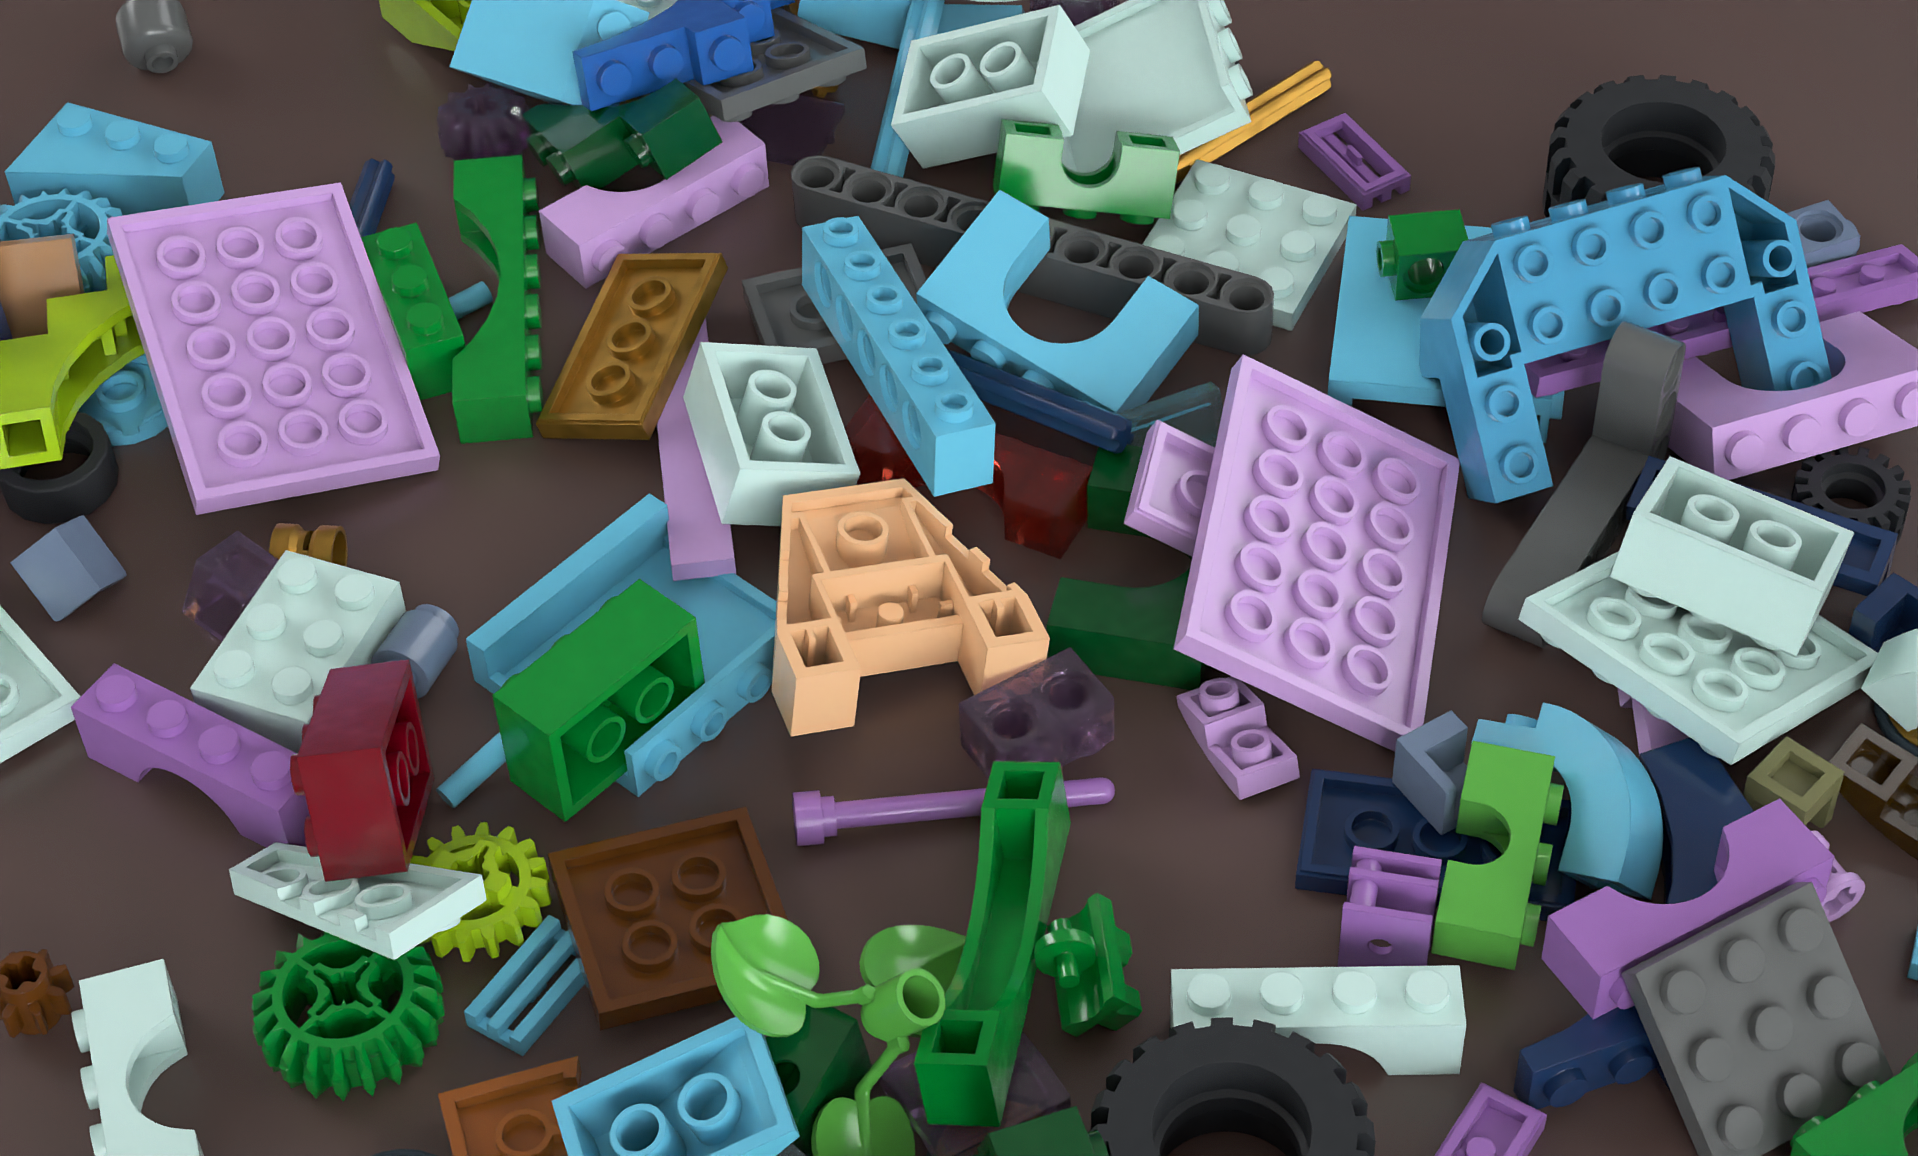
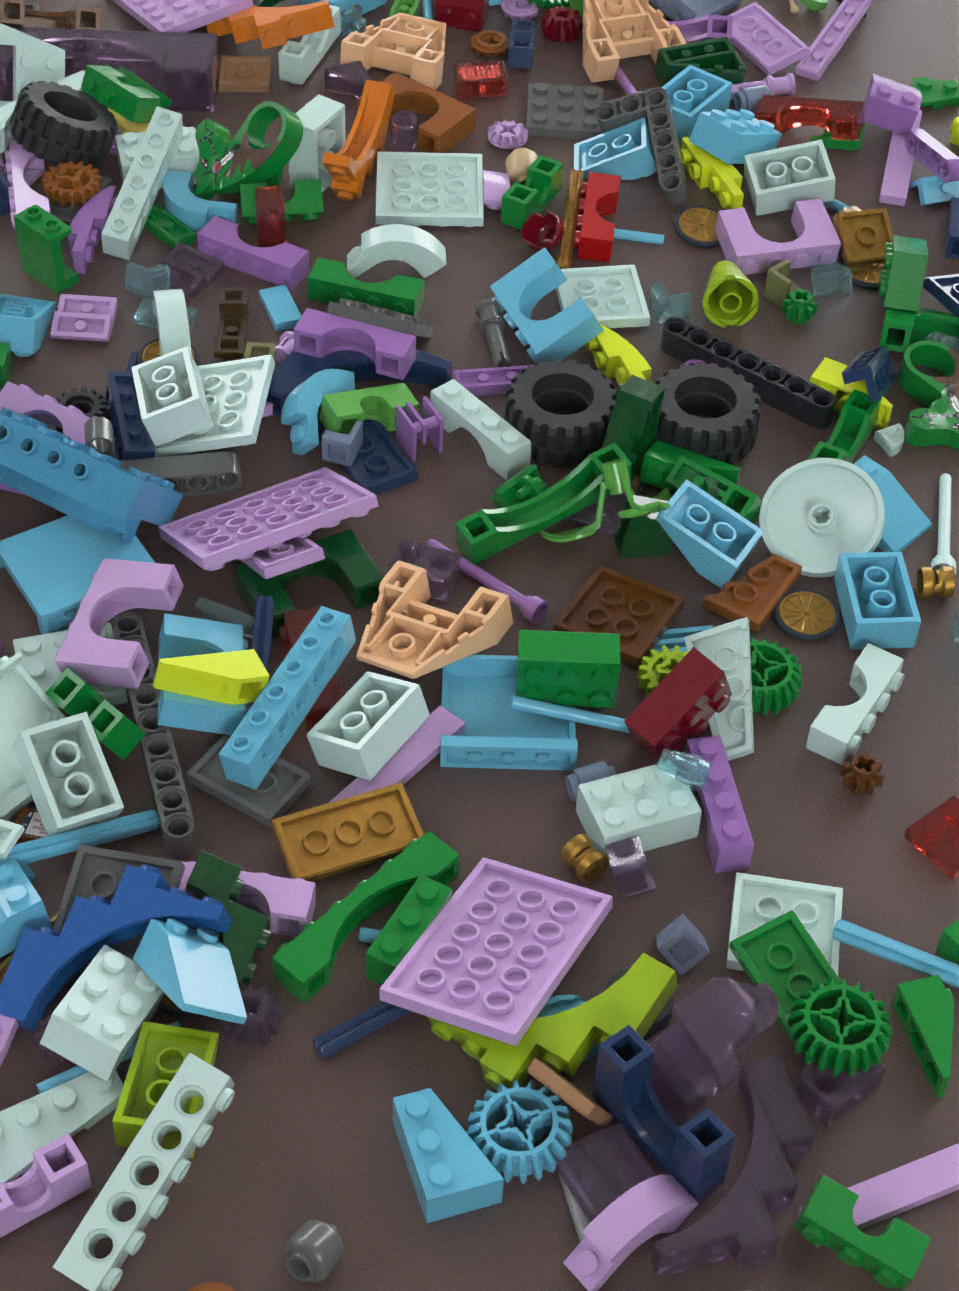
camera: 135 degrees left, 0 degrees up
(255, 682) = (685, 767): none -> clear light blue cone
(975, 264) = (217, 677): none -> neon yellow slope
(1235, 736) = (372, 524): lavender slope -> none
(1291, 274) = (114, 589): none -> lavender arch
(1419, 251) = (61, 560): green brick -> none

